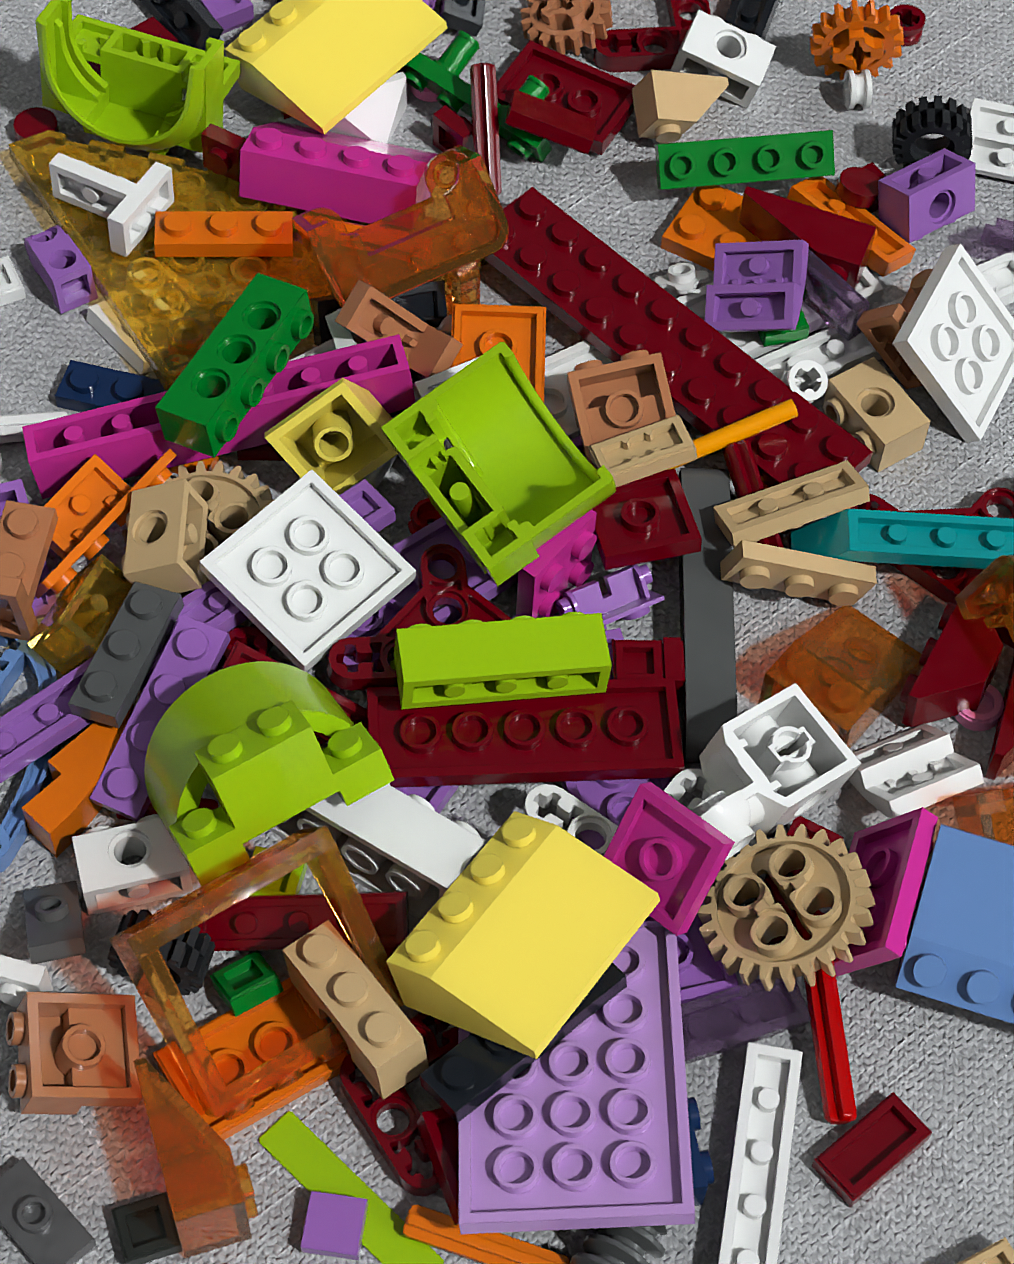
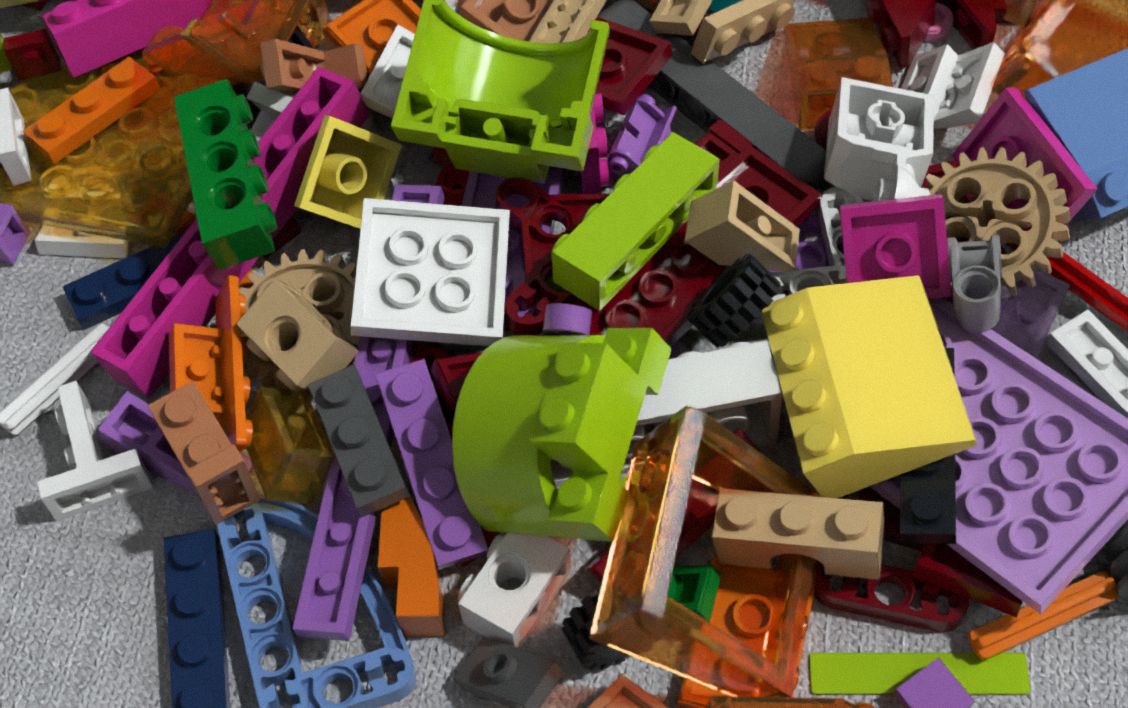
camera: 35 degrees left, 0 degrees up
(349, 696) = (566, 320): none -> medium lavender beam
(498, 787) = (733, 300): none -> black tyre
(573, 741) = (737, 223): none -> tan slope
(709, 930) = (976, 282): none -> light grey piece

